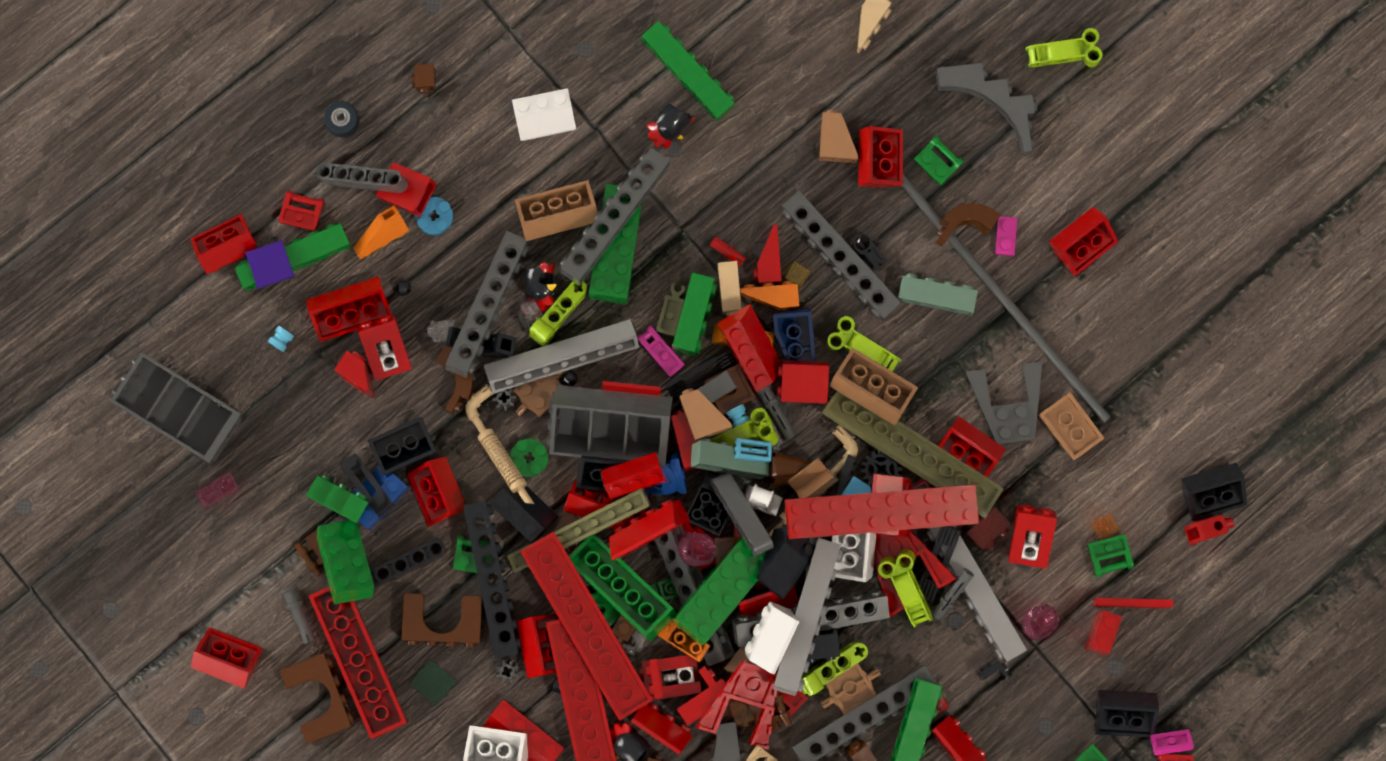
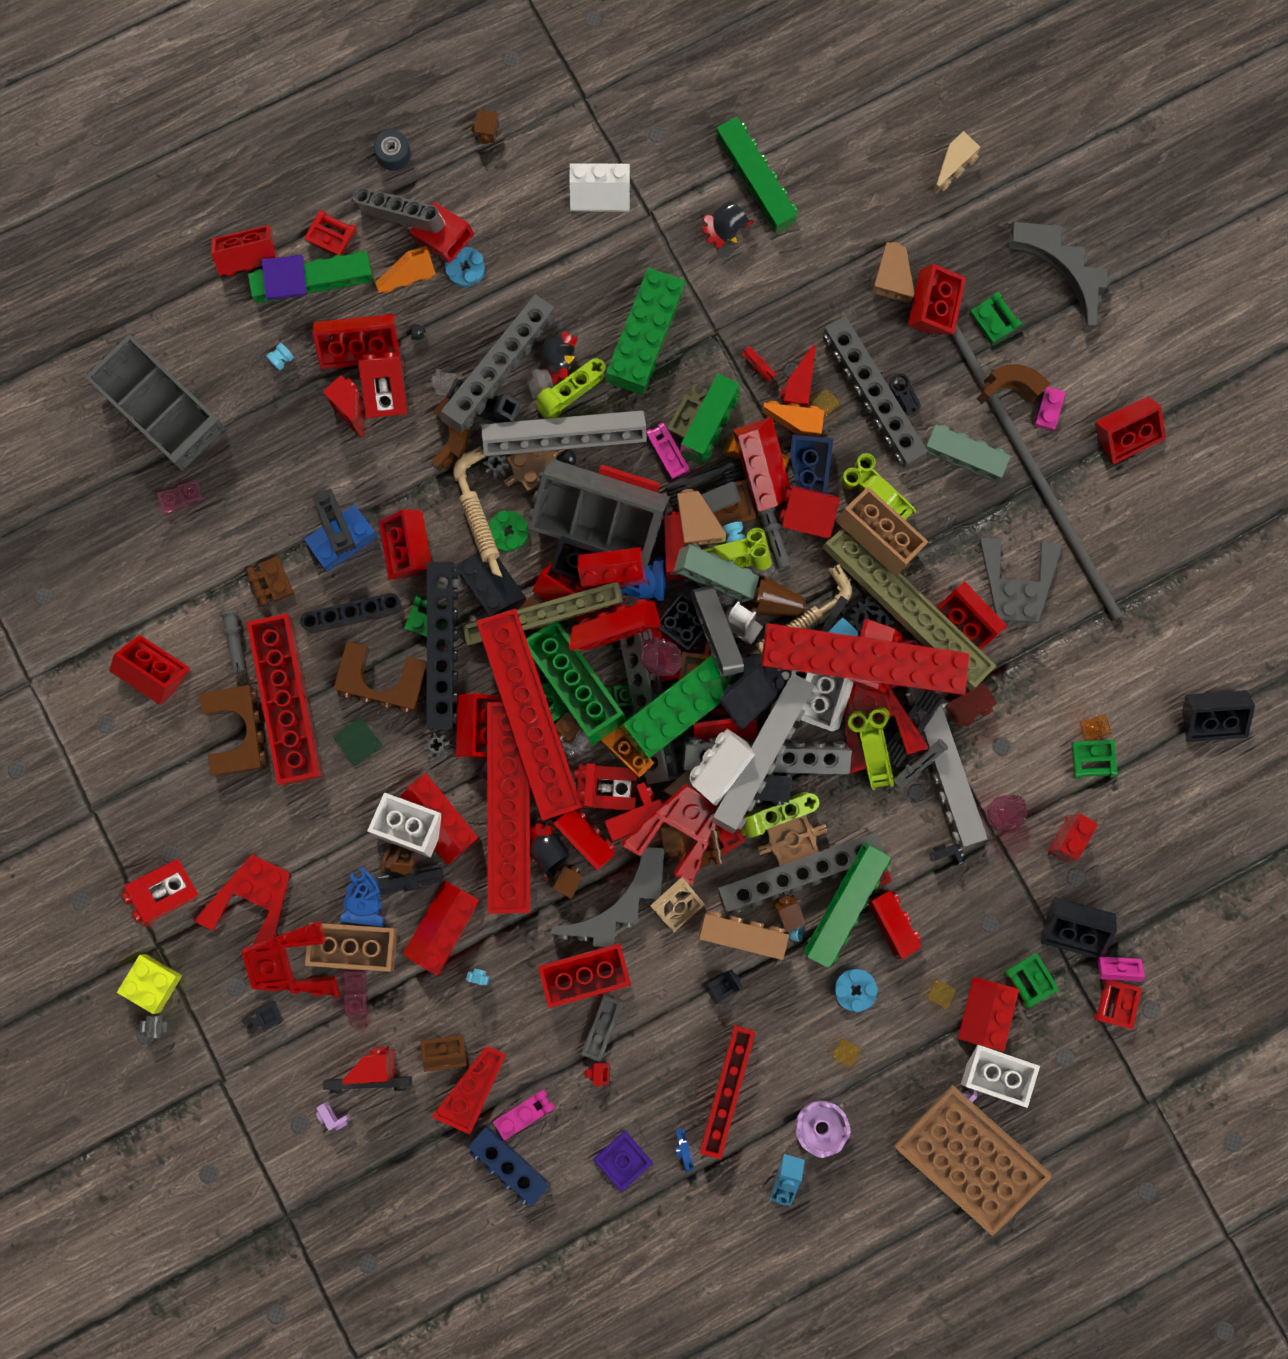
camera: 10 degrees right, 0 degrees up
(337, 498) = (299, 528): green brick -> none
(345, 561) = (292, 594): green brick -> none
(402, 445) = (379, 489): black slope -> none
(556, 210) = (591, 284): medium nougat brick -> none
(579, 272) = (601, 347): dark grey brick -> none
(729, 287) = (753, 396): tan slope -> none
(739, 449) = (728, 565): medium azure tile -> none
(812, 480) = (798, 612): medium nougat panel -> none
(1032, 520) = (1024, 704): red brick -> none
(1066, 51) = (1151, 234): lime piece -> none
(1071, 426) = (1079, 617): medium nougat plate -> none
(1132, 603) = (1107, 813): red tile -> none
(1208, 529) = (1203, 753): red torso -> none

